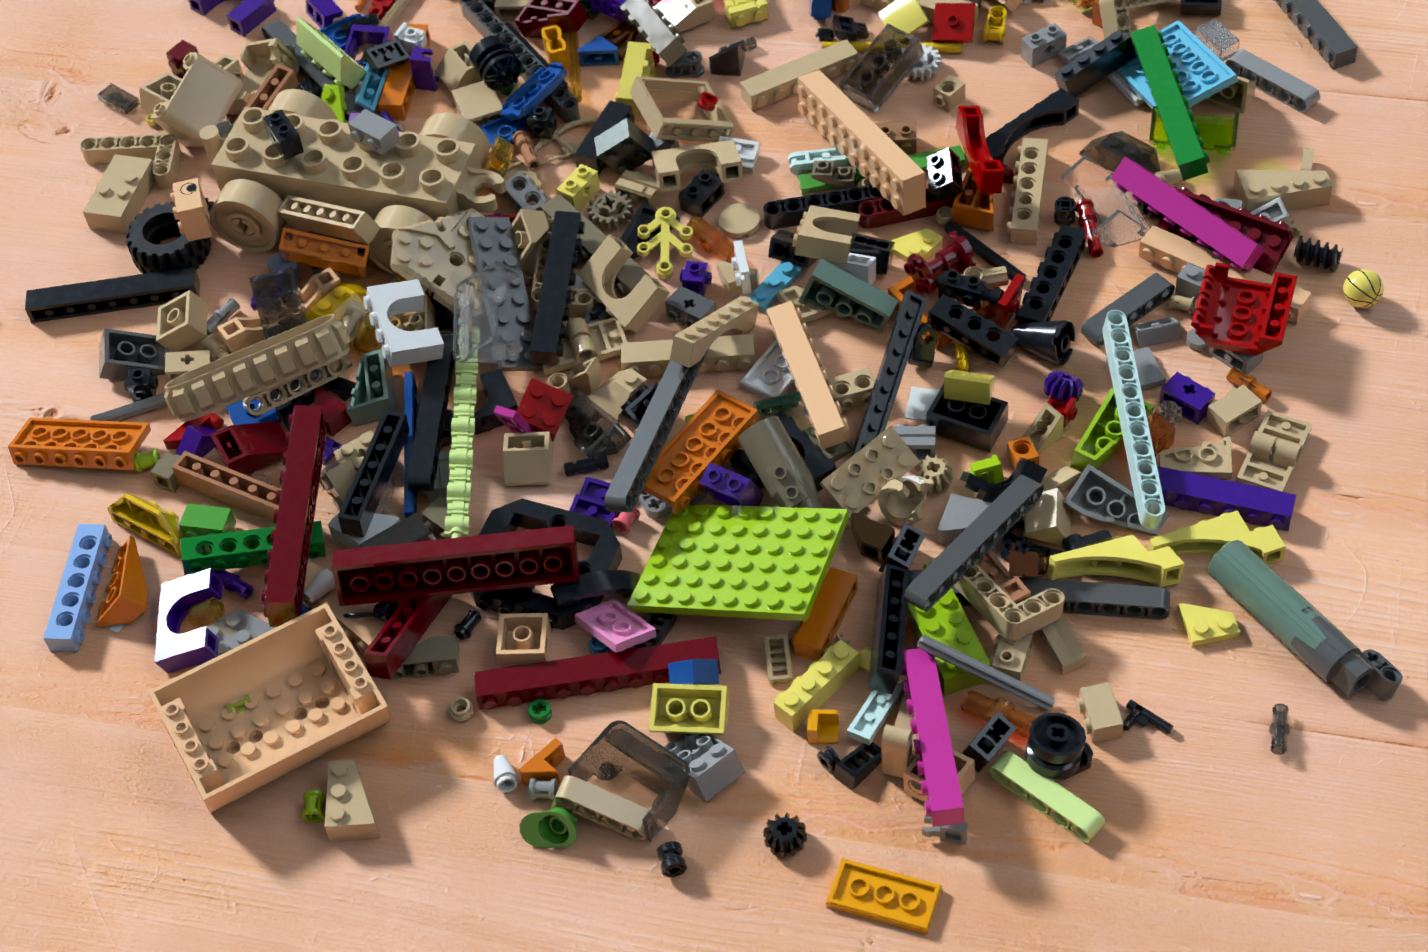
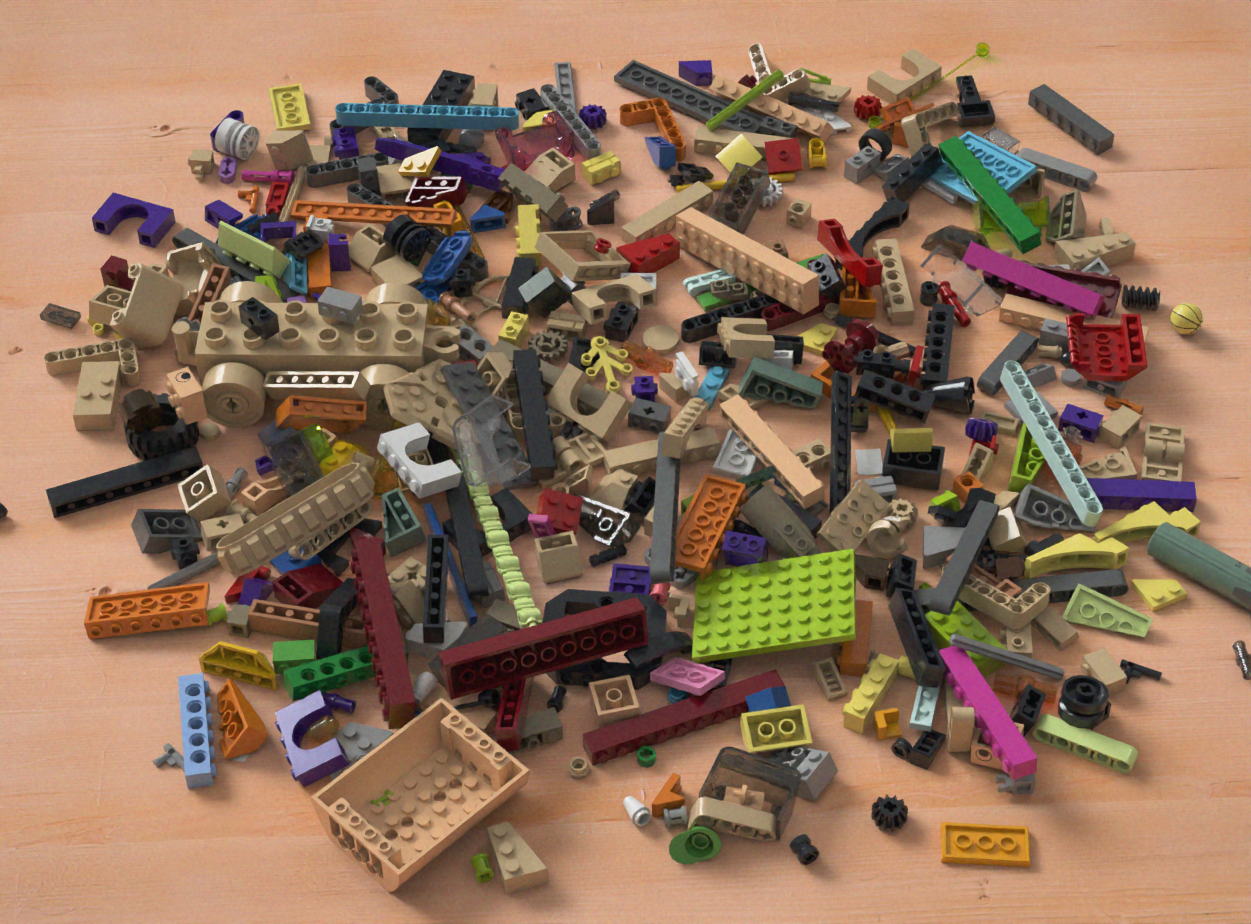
camera: 20 degrees left, 5 degrees down
(42, 612) = (171, 759): none -> light grey hose
(139, 219) = (140, 411): none -> dark brown brick
(221, 252) = (210, 431): none -> tan tile
(249, 488) = (332, 616): none -> black beam
(310, 283) = (317, 442): none -> clear neon green brick
(477, 29) = (373, 213): none -> orange plate
(625, 785) = (744, 797): none -> light nougat hips
(641, 544) = (681, 606): none -> tan bracket
(762, 118) = (650, 254): none -> red wedge
(1072, 18) = (878, 136): none -> black tyre
(1094, 382) = (1006, 424): none -> tan tile
(1123, 635) = (1102, 612): none -> yellowish green wing
(1264, 143) = (1067, 218): none -> dark tan wedge

